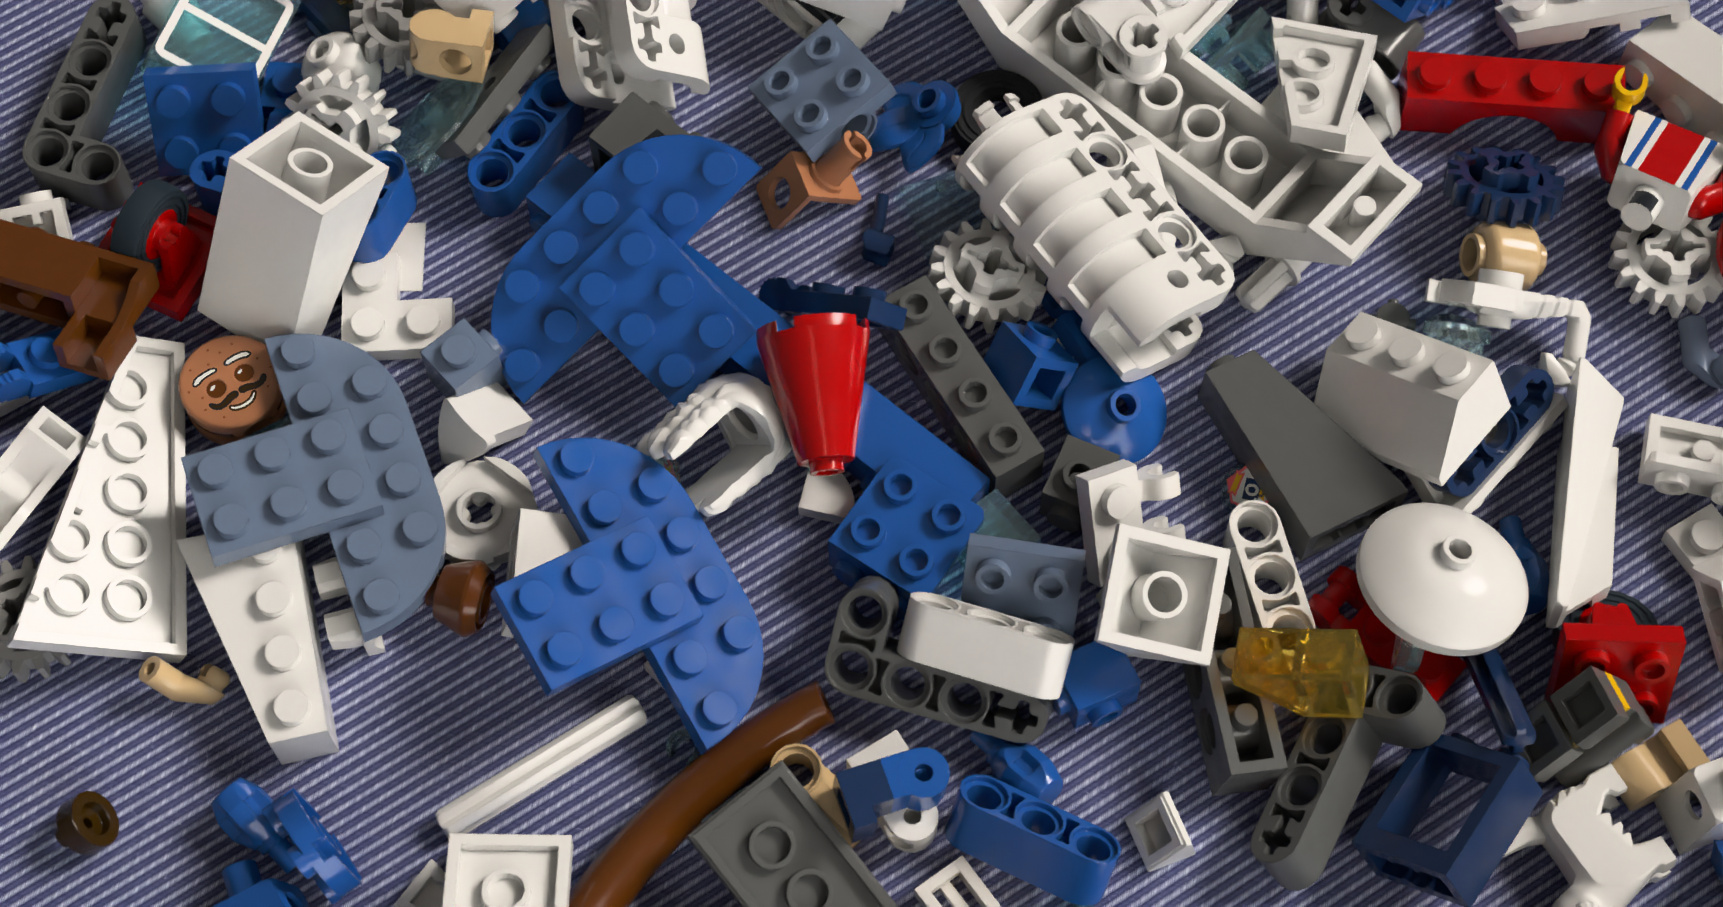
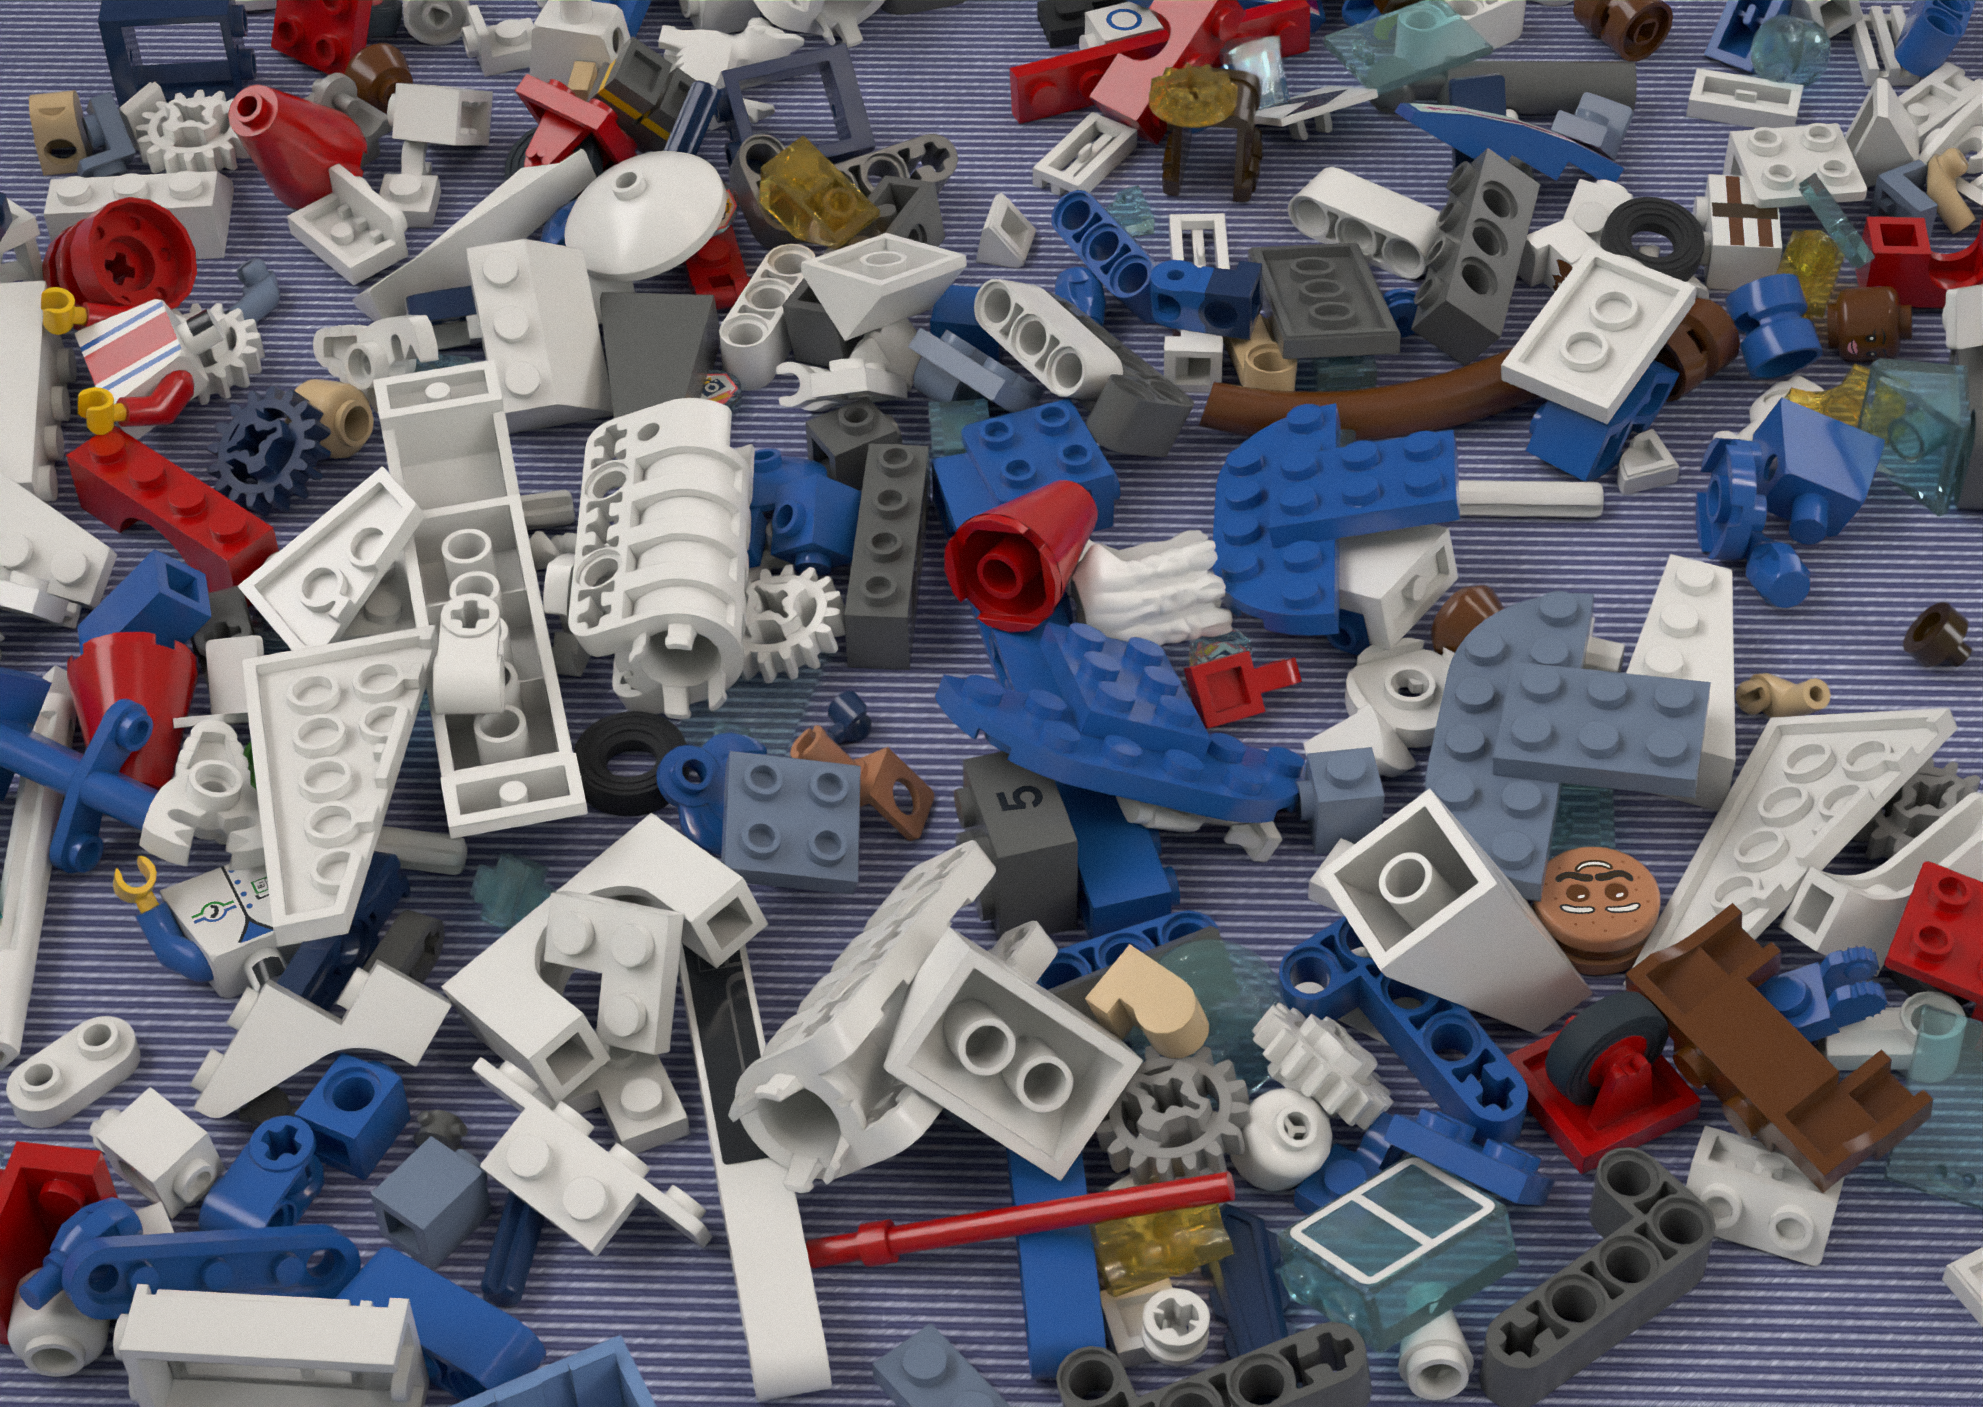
camera: 145 degrees left, 20 degrees down
(620, 419) = (1232, 687): none -> red plate
(865, 302) = (946, 618): dark blue hinge -> none

